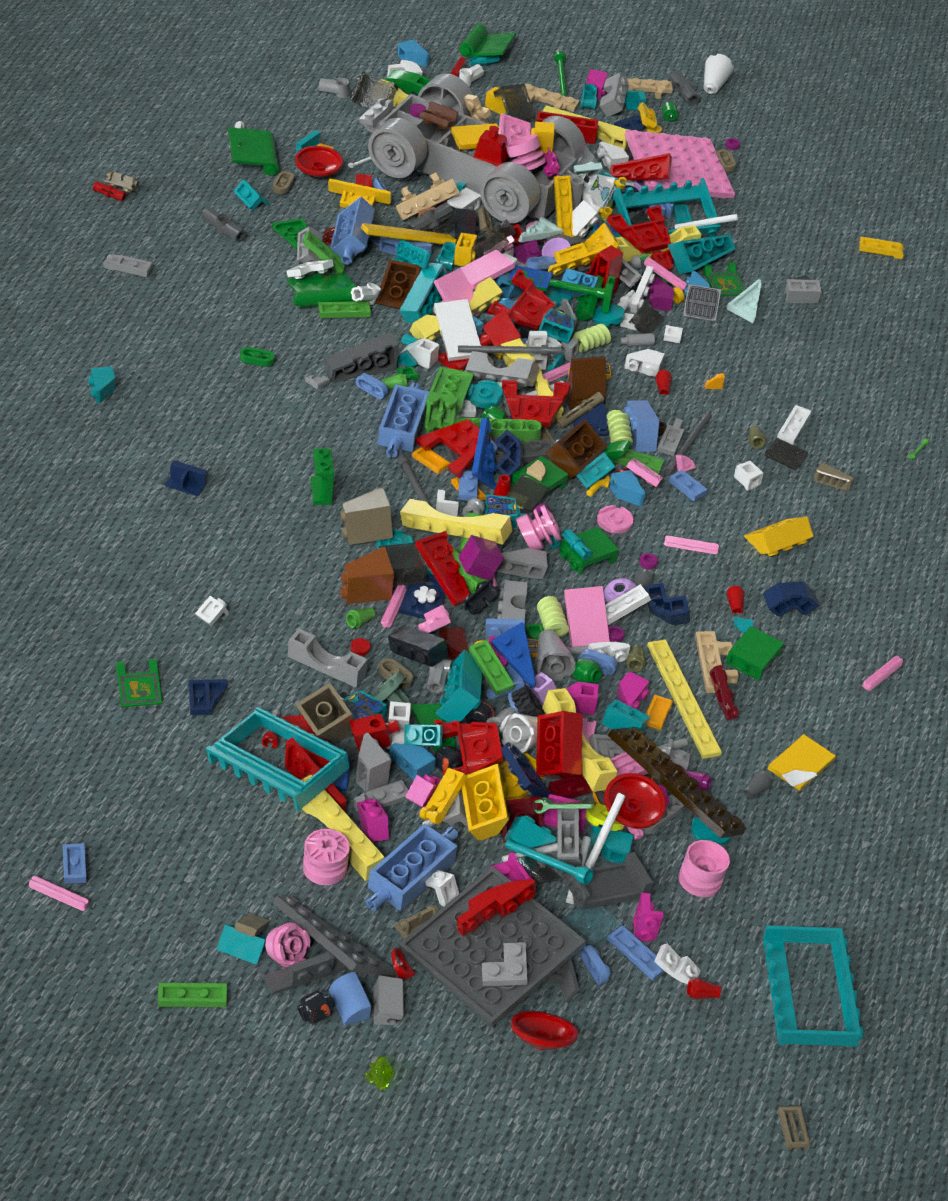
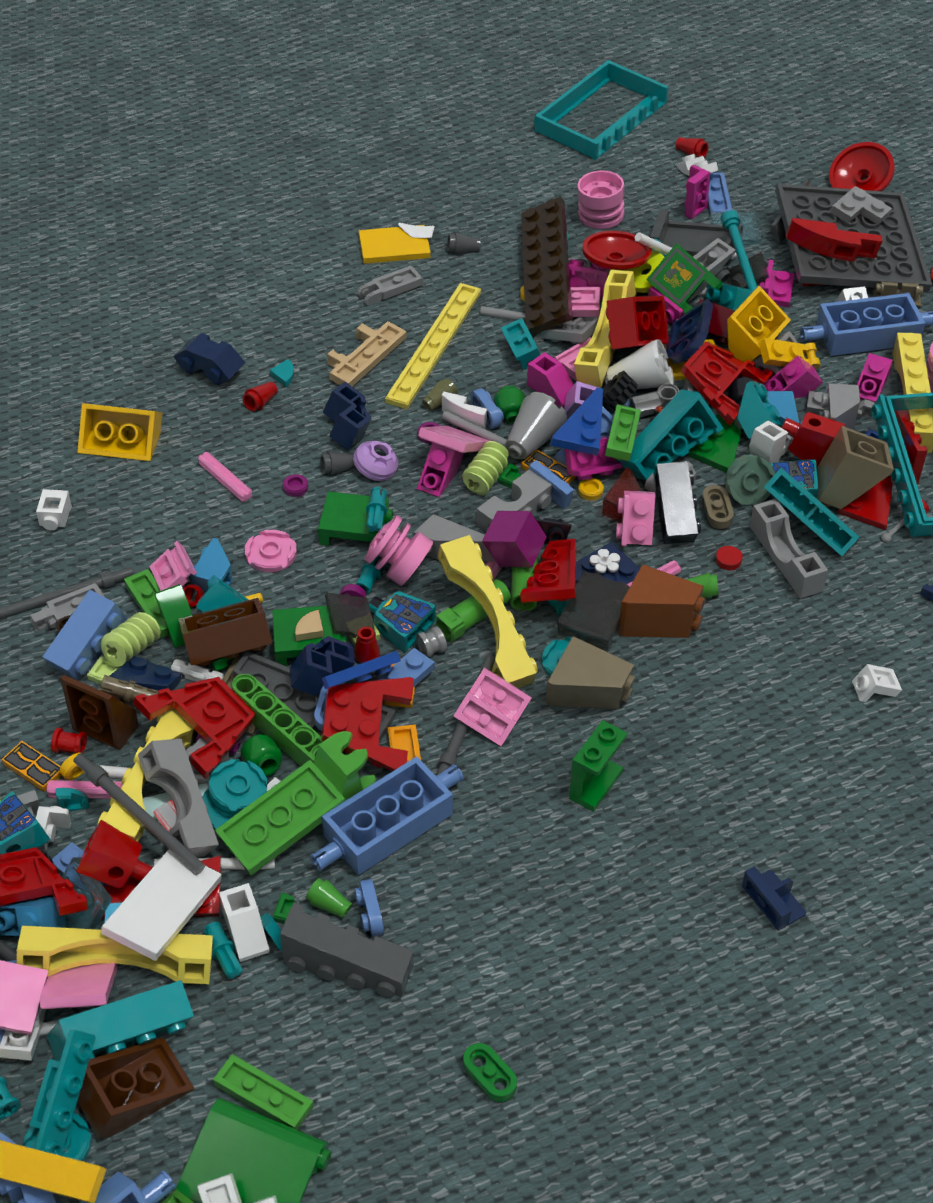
camera: 135 degrees left, 5 degrees up
(102, 381) = (782, 1155): teal slope -> none
(317, 382) = (435, 974): light grey tile -> none
(344, 682) = (811, 512): none -> teal brick
(366, 293) = (202, 1090): white piece -> none
(406, 489) = (492, 706): none -> bright pink slope
(445, 506) = (459, 668): white panel -> none
(536, 339) = (78, 819): white brick -> none
(594, 964) = (766, 197): medium blue plate -> none
(626, 603) = (396, 435): white plate -> none
(633, 690) = (487, 364): dark pink slope -> none
(658, 711) = (476, 345): light orange tile -> none
(677, 756) = (510, 296): light grey bracket -> none
(684, 463) = (103, 565): bright pink tile -> none
(688, 485) = (136, 539): medium blue plate -> none
(702, 778) = (513, 271): magenta cone -> none
(723, 693) = (399, 313): dark red hinge -> none
(754, 652) = (313, 334): green panel -> none
(760, 725) = (390, 285): none -> light grey hinge
(796, 1144) = (718, 60): dark tan tile -> none
(882, 673) = (211, 269): bright pink axle -> none

